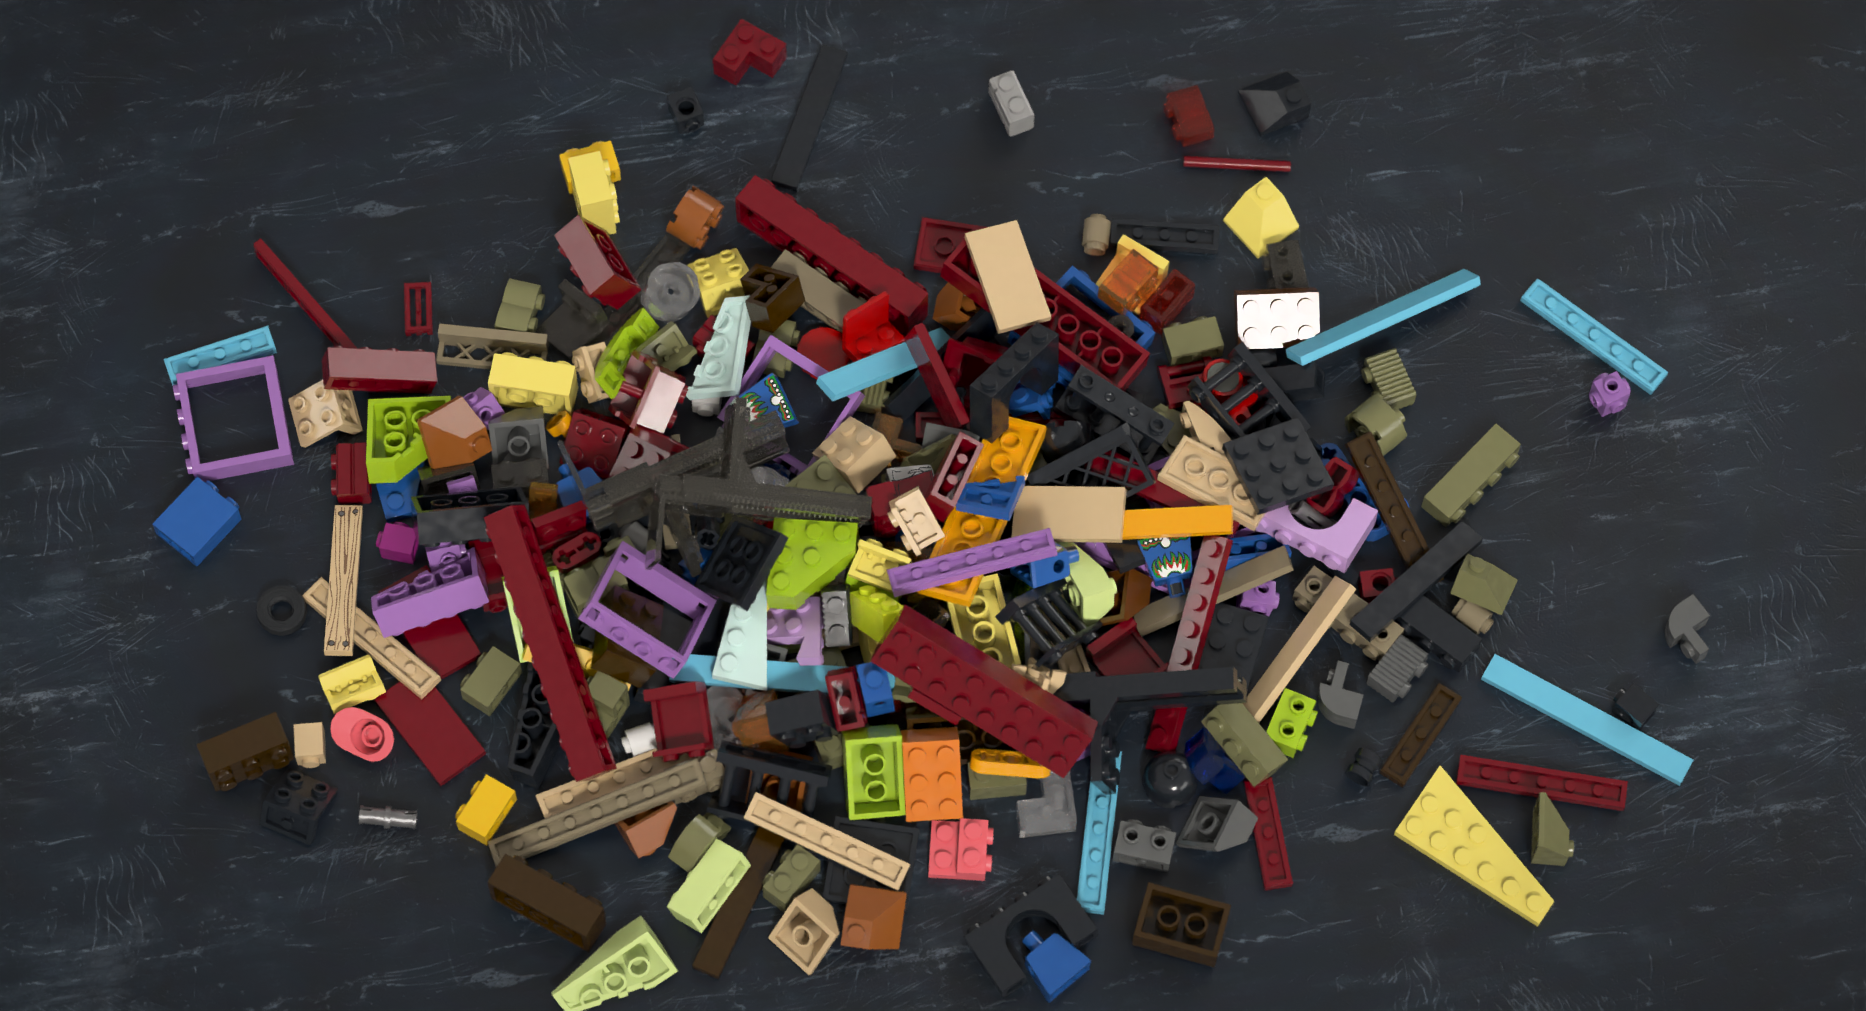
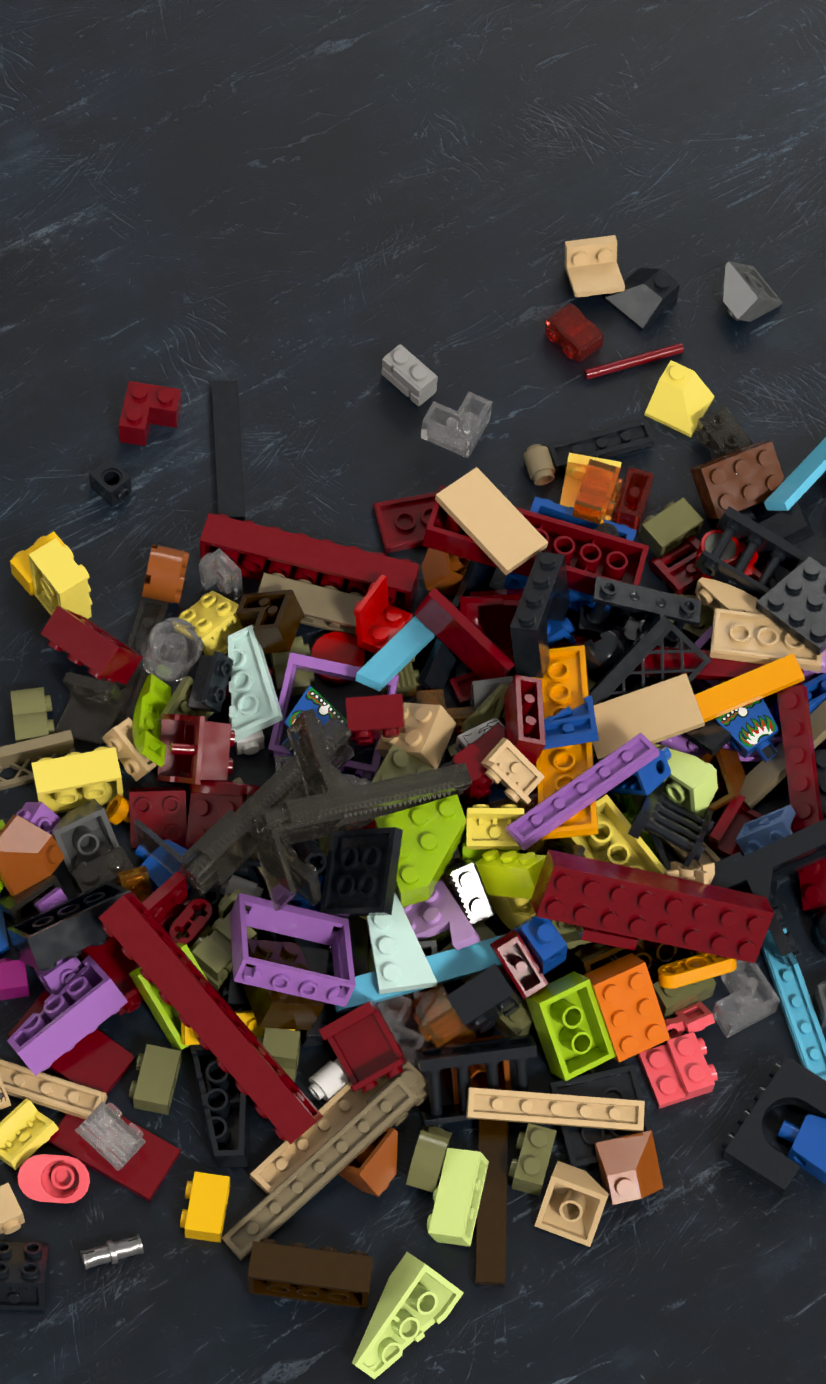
camera: 25 degrees left, 5 degrees down
(426, 714) = (111, 1135): none -> clear brick
(690, 336) = (210, 683): none -> black bracket
(742, 230) = (221, 570): none -> clear bracket
(817, 424) = (374, 716): none -> dark red brick
(991, 807) = (692, 1019): none -> coral plate
(1034, 174) = (457, 429): none -> clear brick
(1140, 660) = (765, 829): none -> medium blue bracket
(1238, 56) = (593, 266): none -> tan bracket
(1379, 133) = (747, 293): none -> dark grey slope

